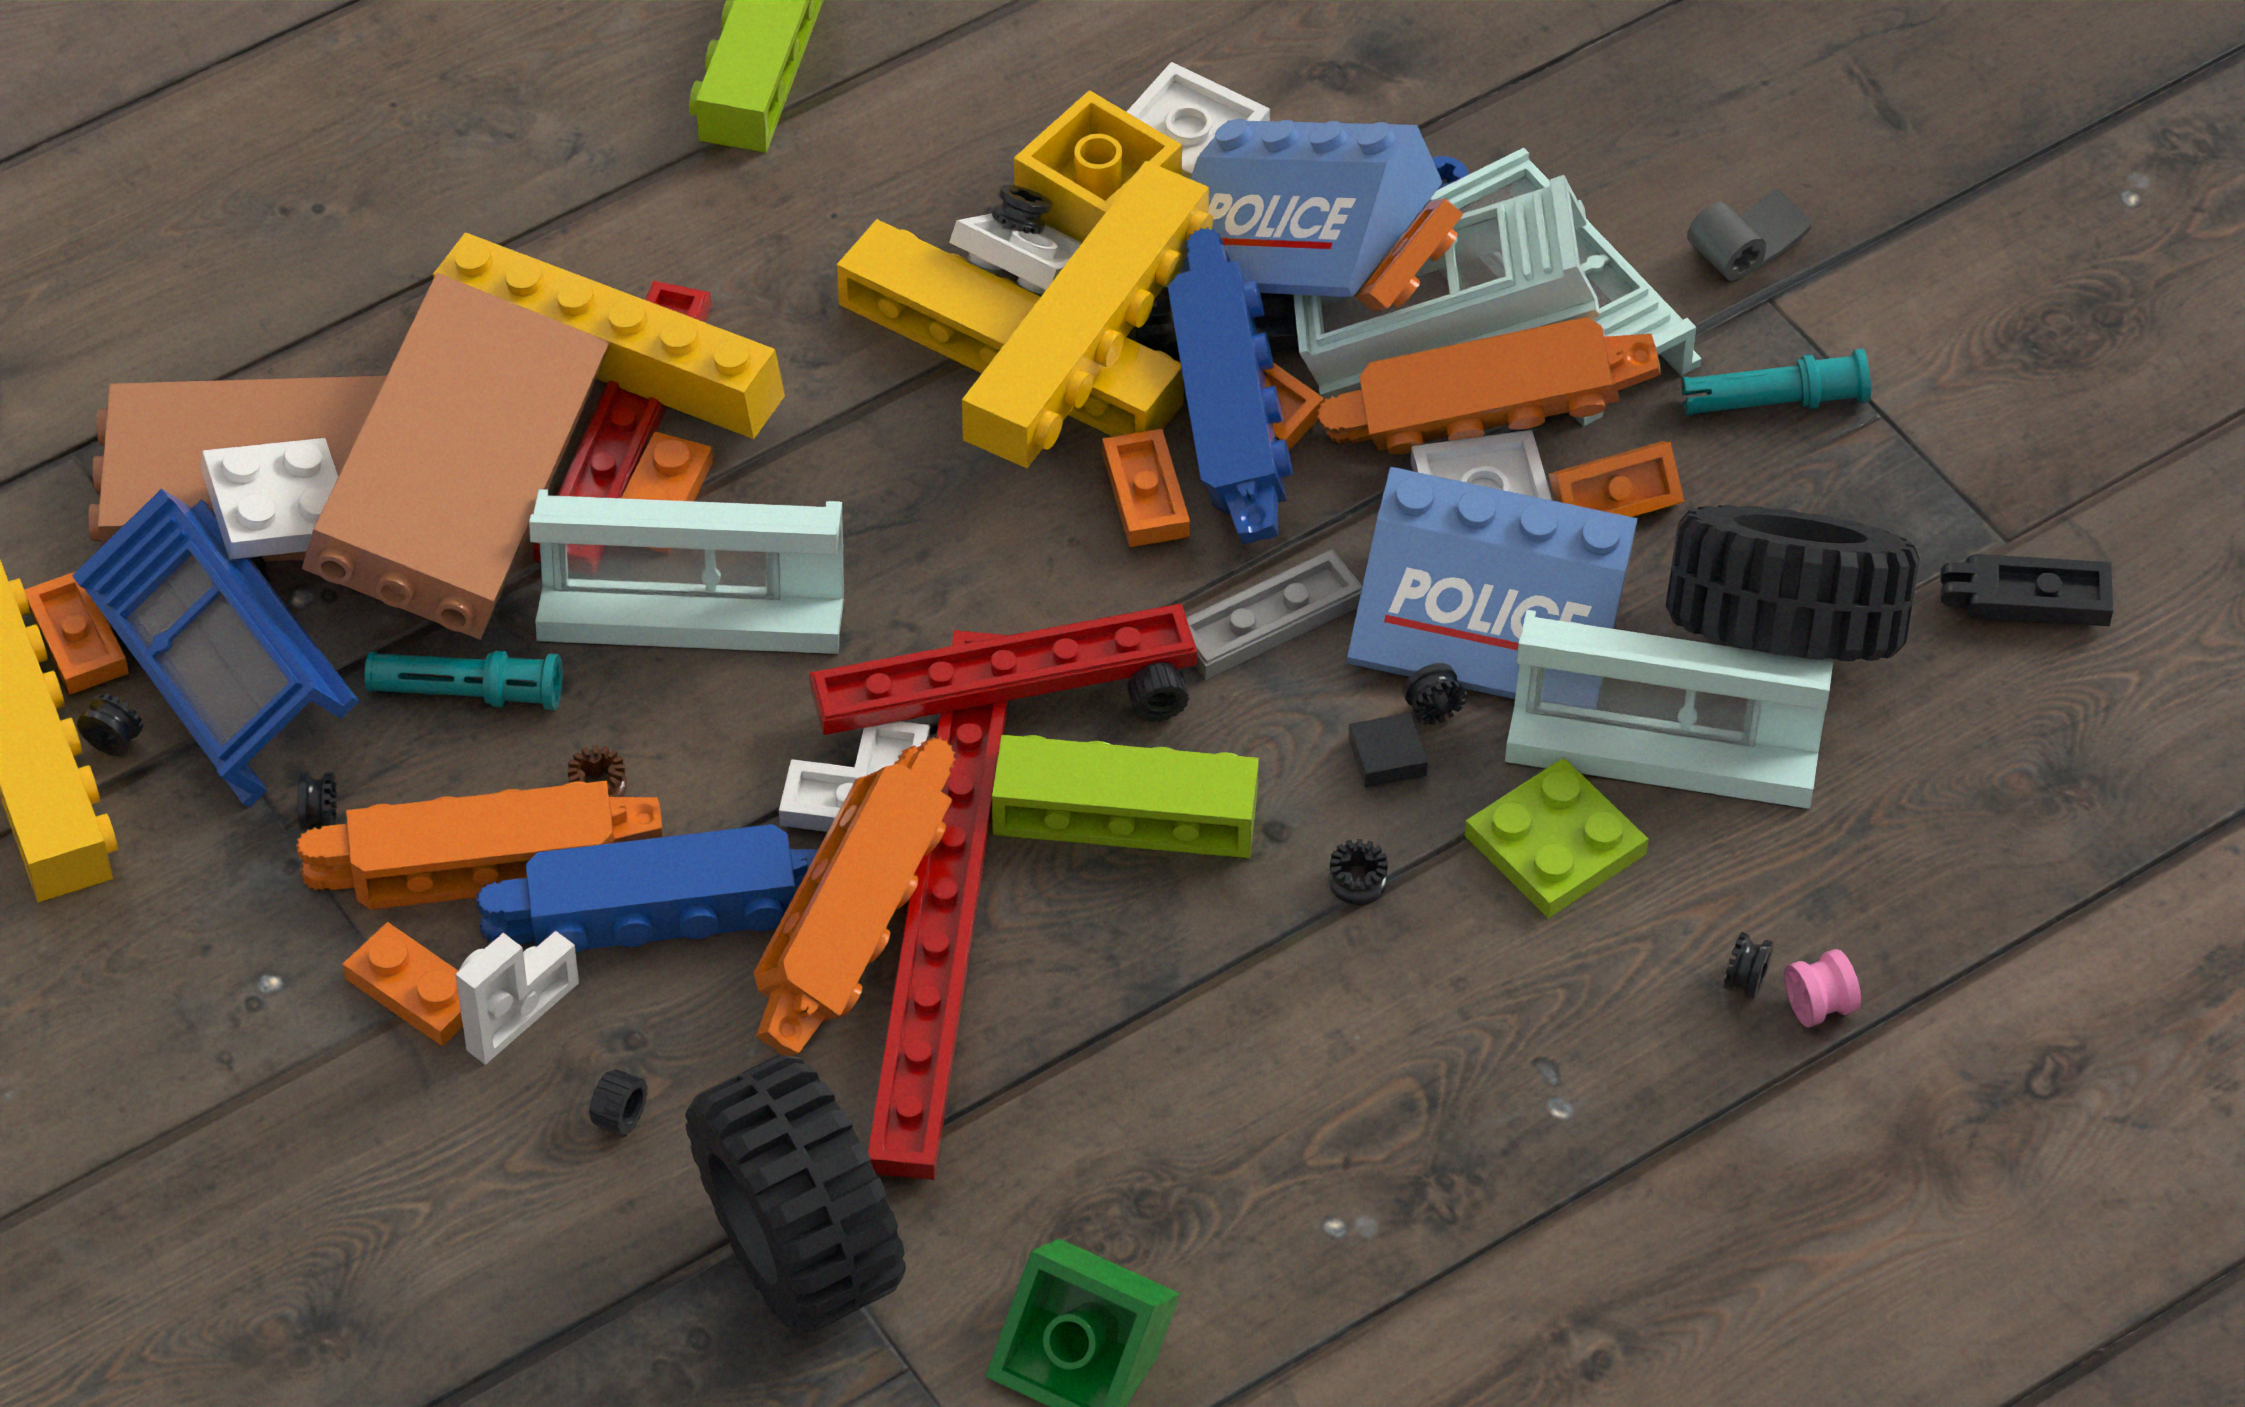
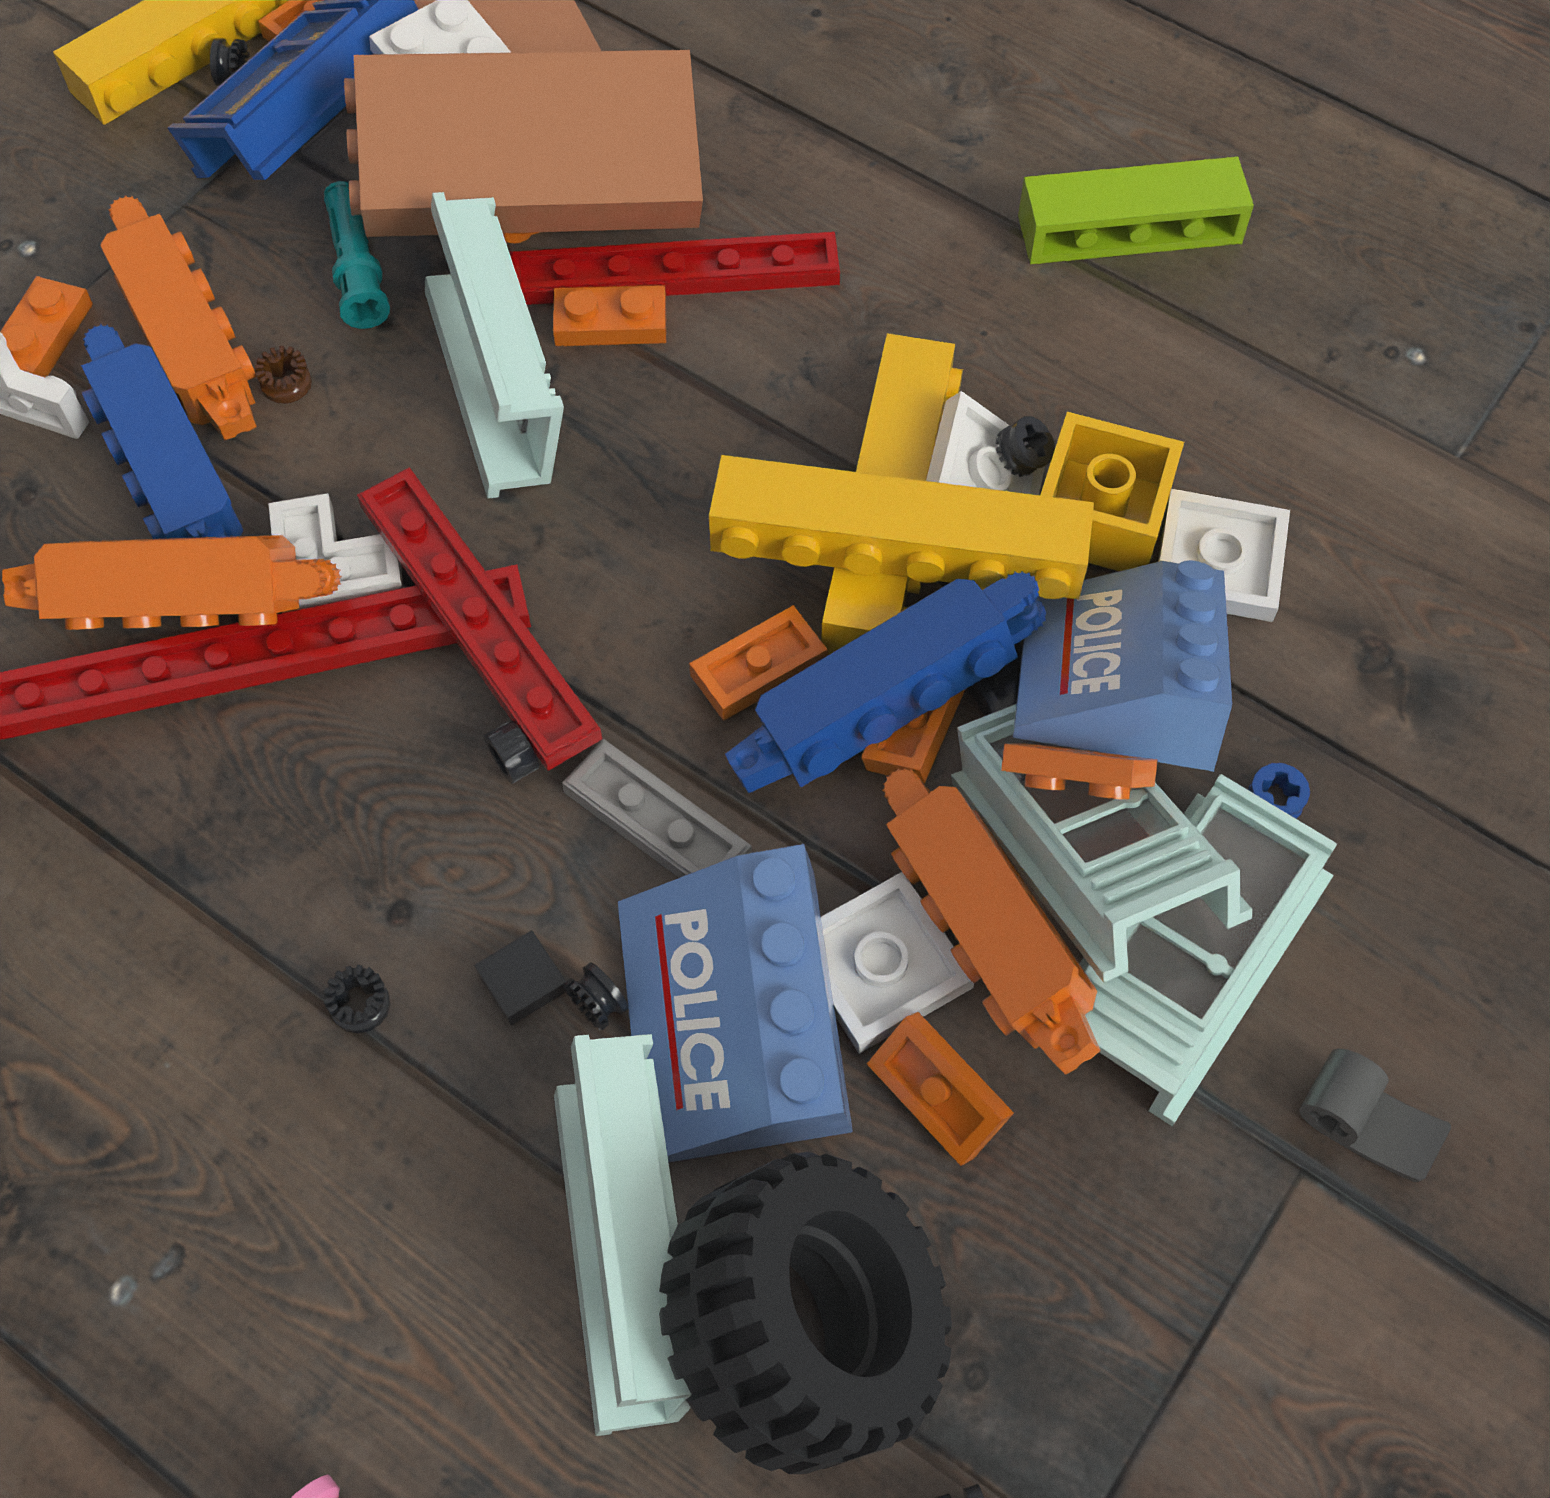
camera: 70 degrees right, 10 degrees up
(315, 800) = (183, 214): black bush -> none
(649, 346) = (735, 217): yellow brick -> none
(1125, 796) = (374, 767): lime brick -> none
(1556, 837) = (461, 1176): lime plate -> none
(1749, 966) = (329, 1433): black bush -> none
(1806, 382) = (1182, 1244): teal pin -> none

